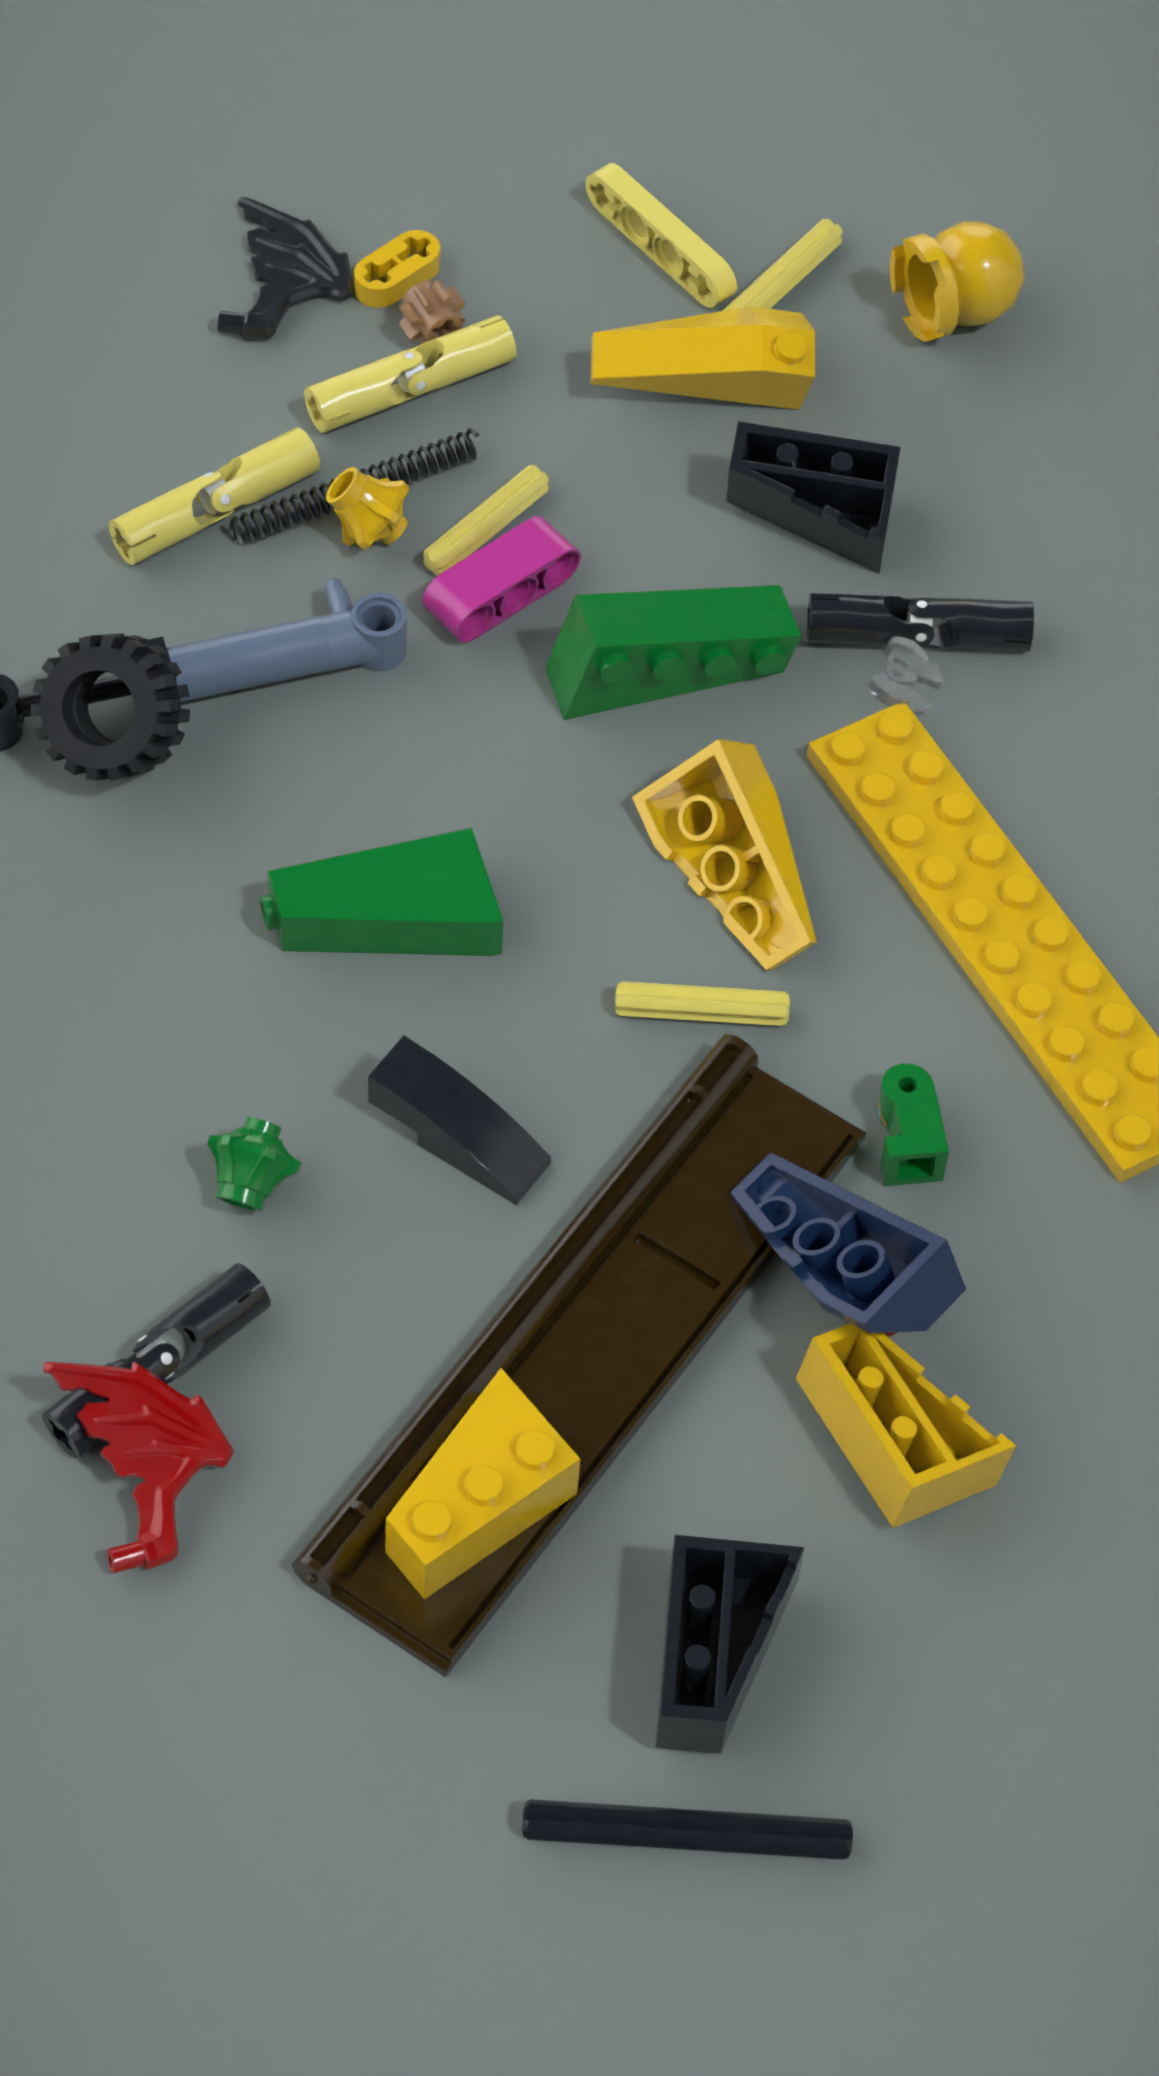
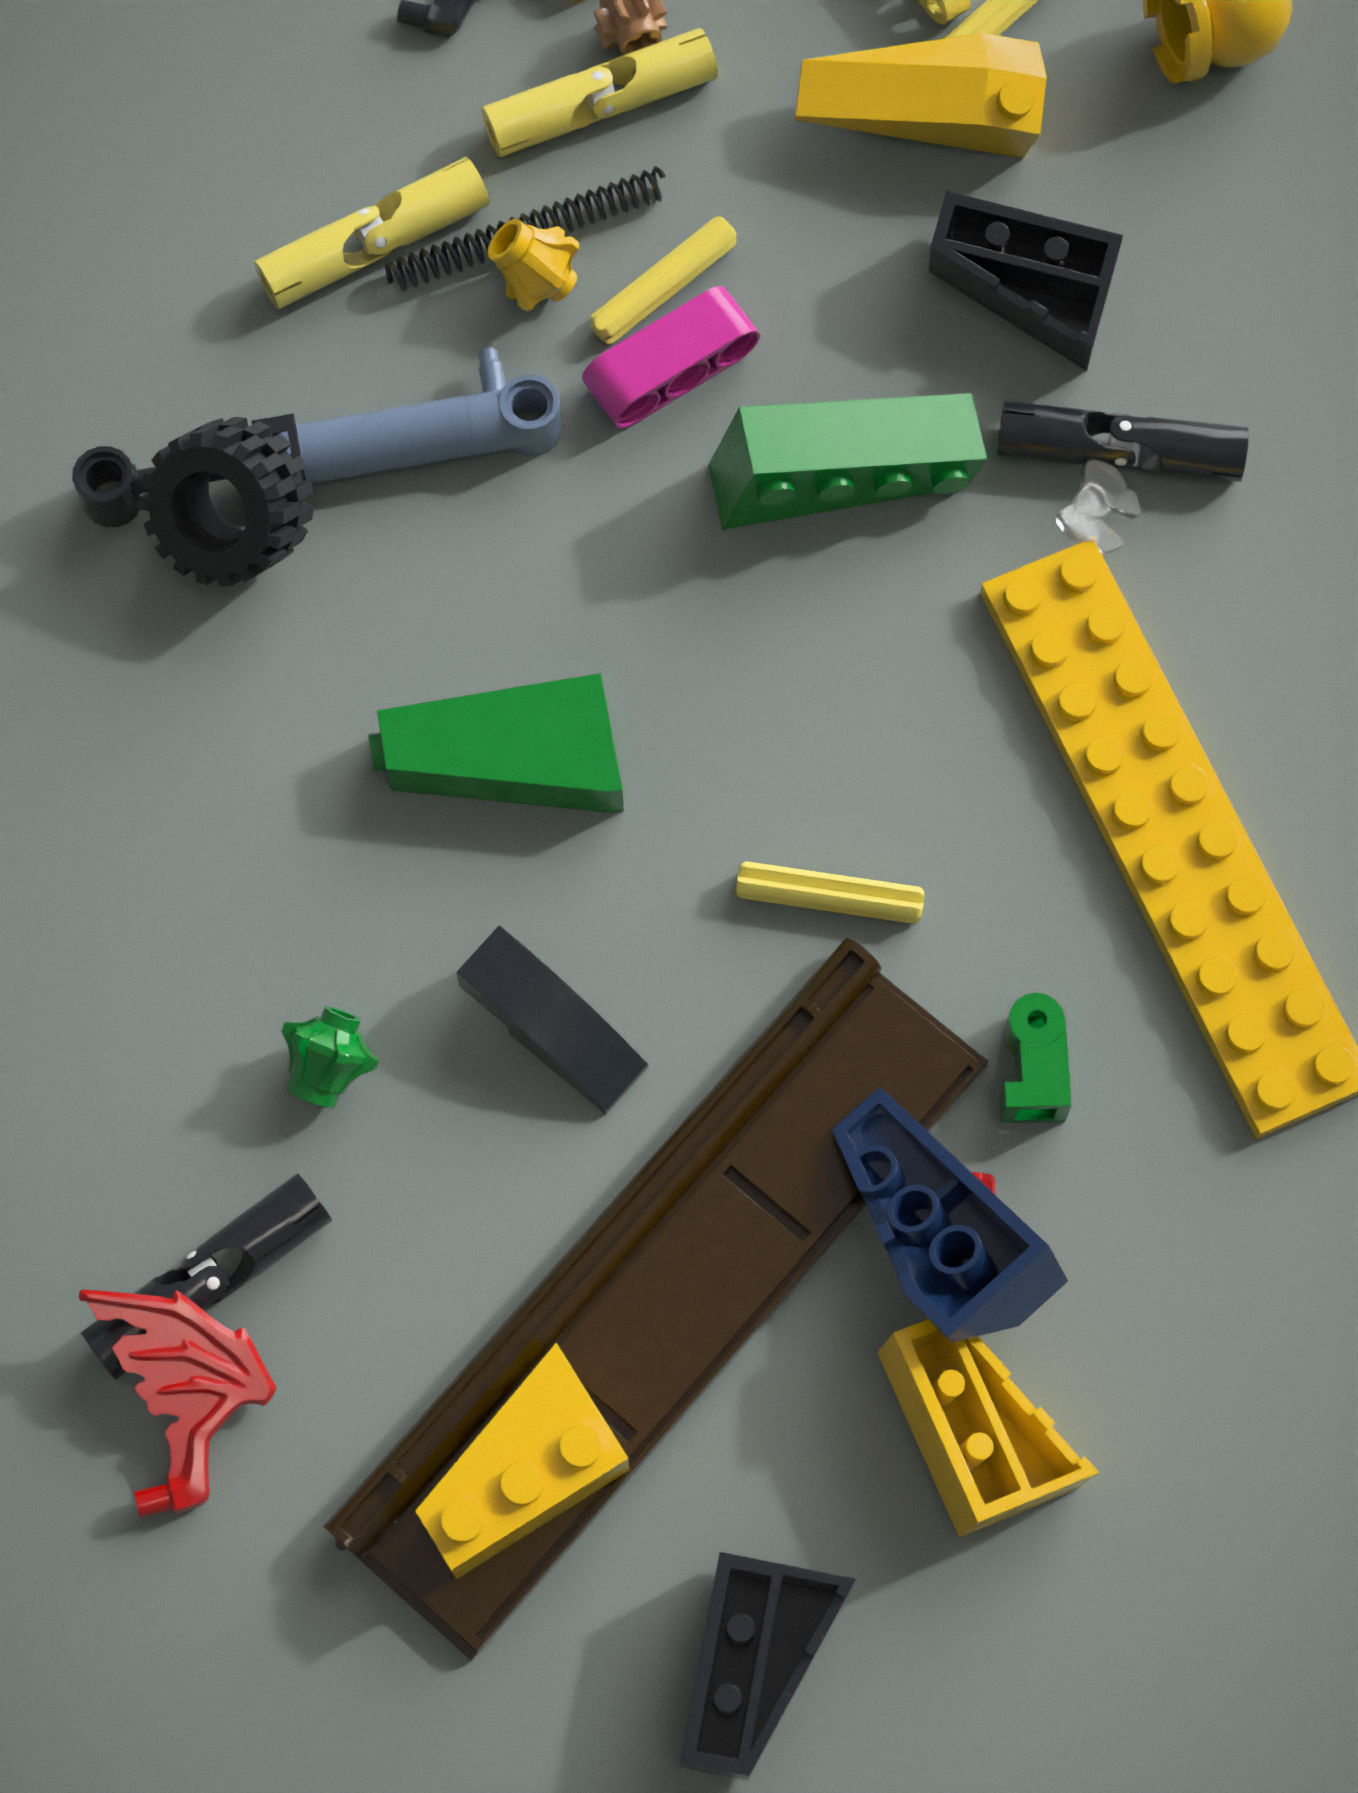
camera: 10 degrees right, 15 degrees up
(731, 841) = (883, 697): yellow wedge -> none

